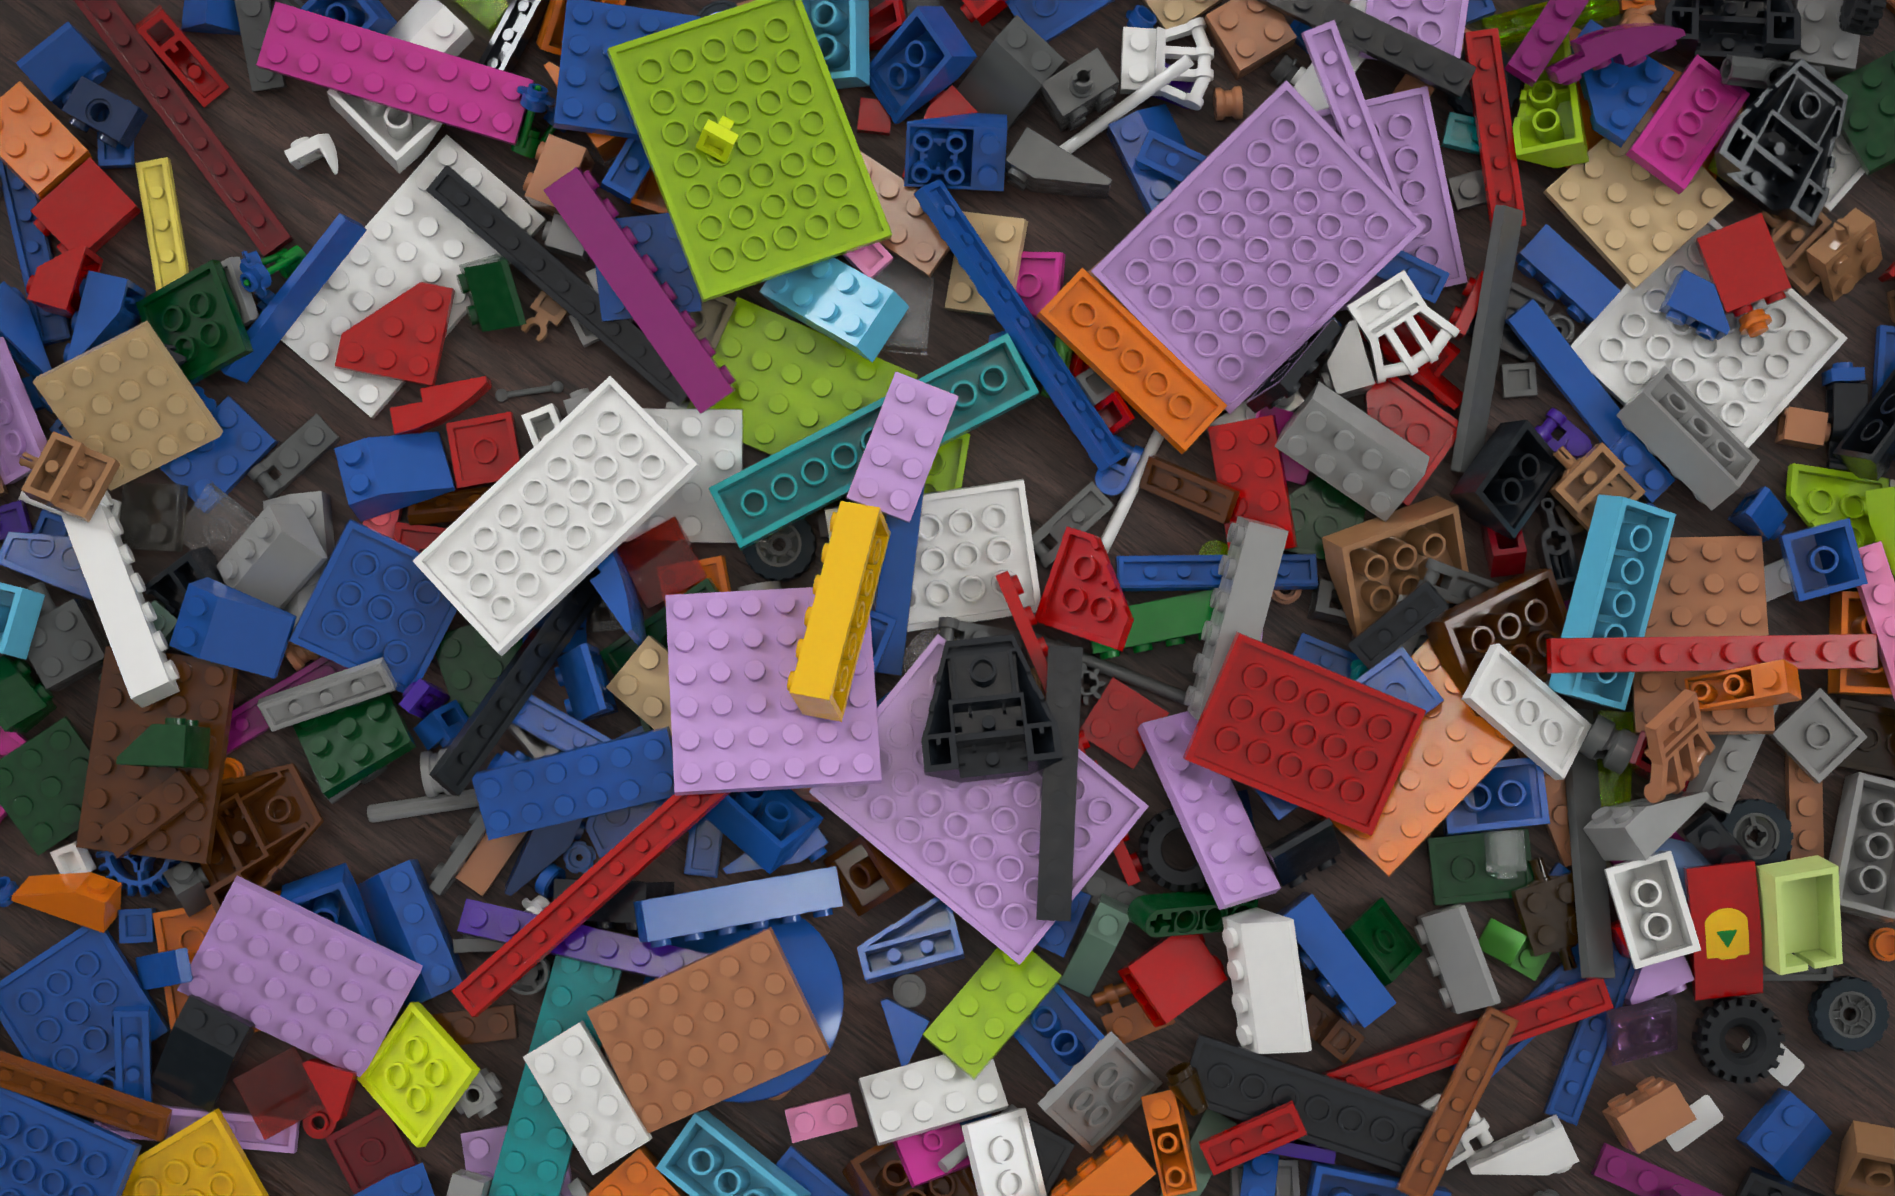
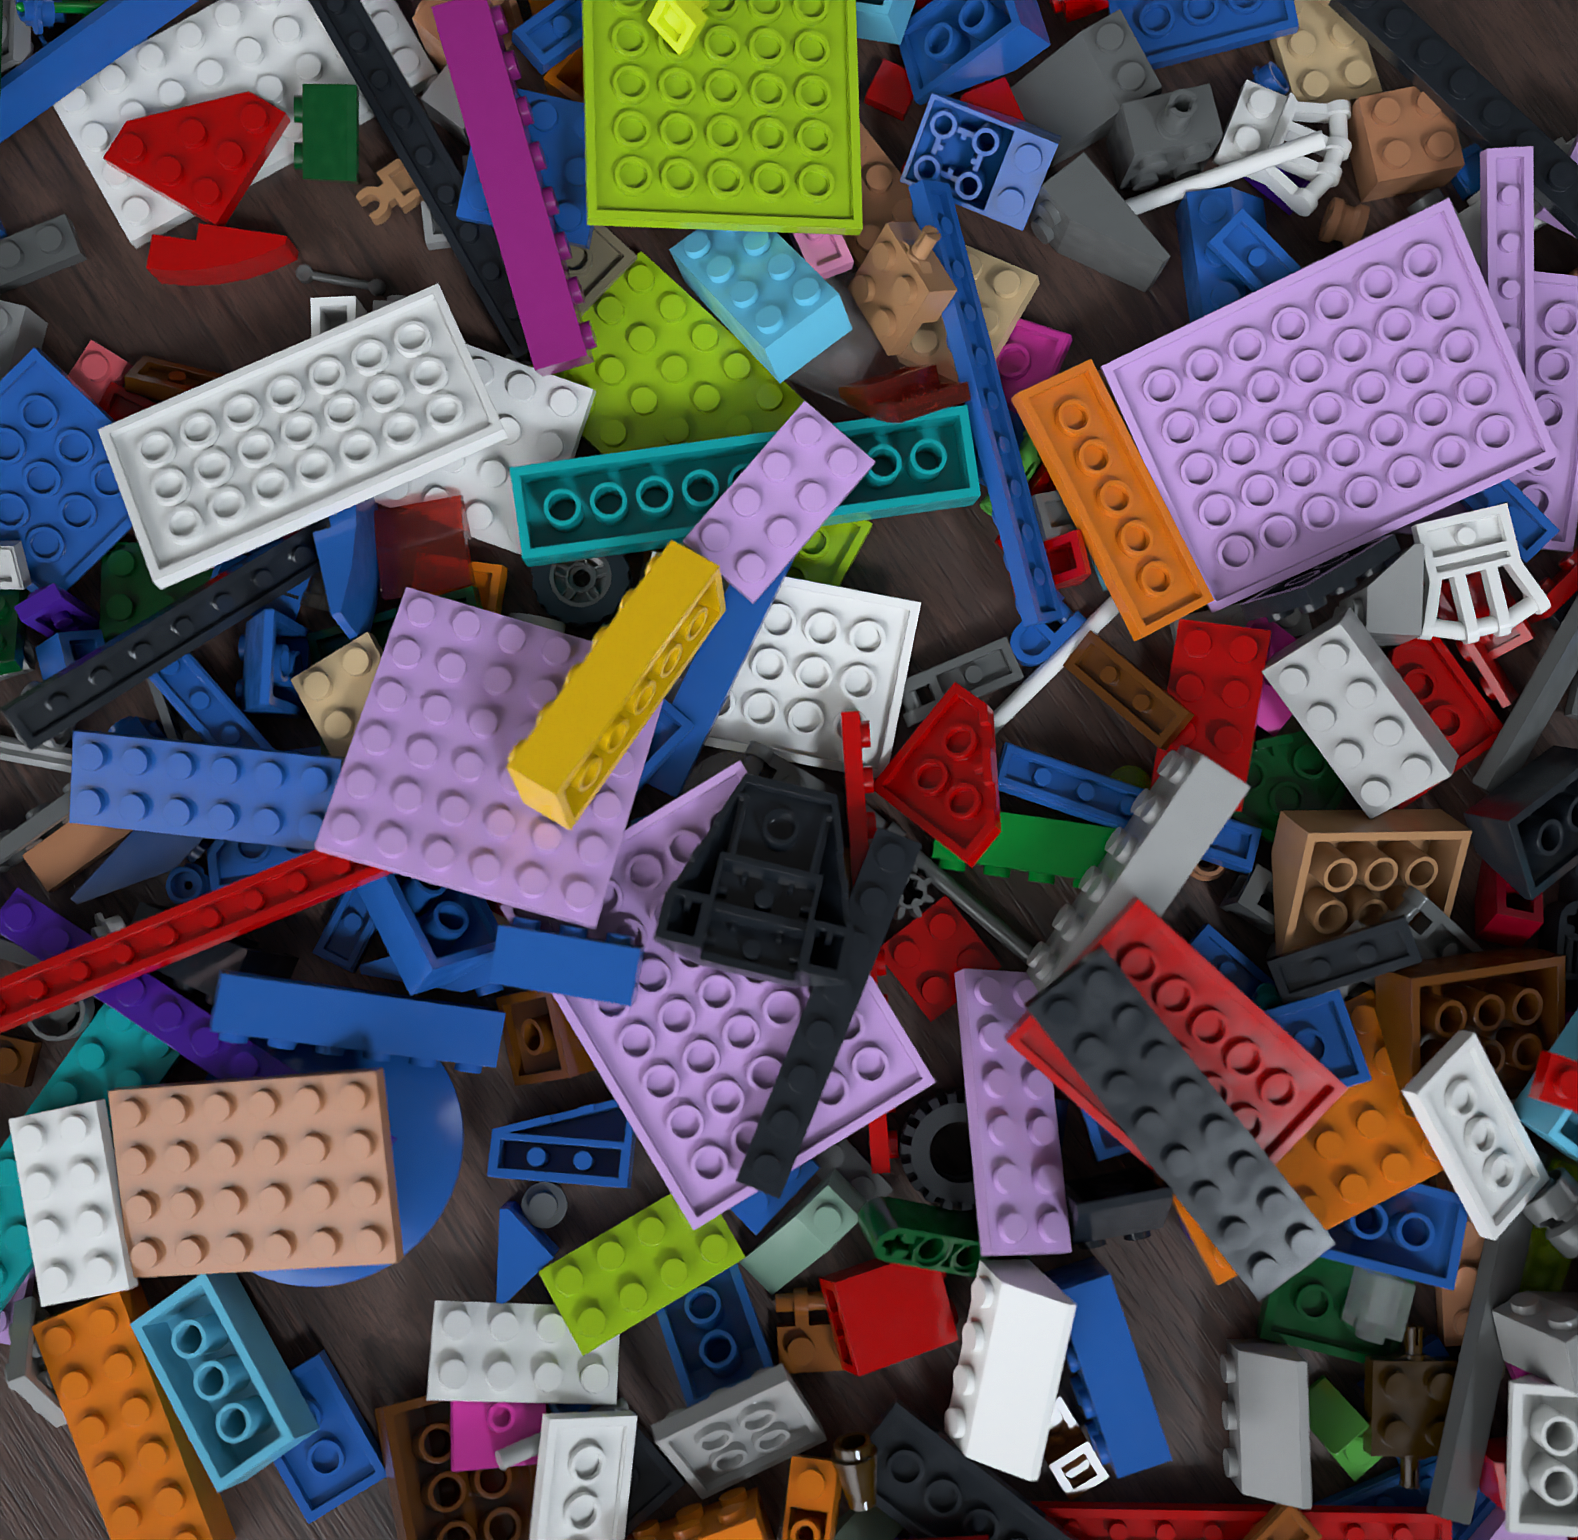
camera: 15 degrees right, 0 degrees up
(393, 472) = (126, 317): blue slope -> none
(483, 449) = (252, 325): red plate -> none
(545, 881) = (129, 899): blue tile -> none
(821, 1117) = (374, 1327): bright pink plate -> none
(870, 811) = (567, 961): none -> blue brick
(932, 263) = (902, 284): none -> medium nougat plate
(961, 339) = (904, 394): none -> clear red slope
(1320, 773) = (1179, 1122): none -> black plate
(1382, 941) = (1176, 1362): dark green plate -> none

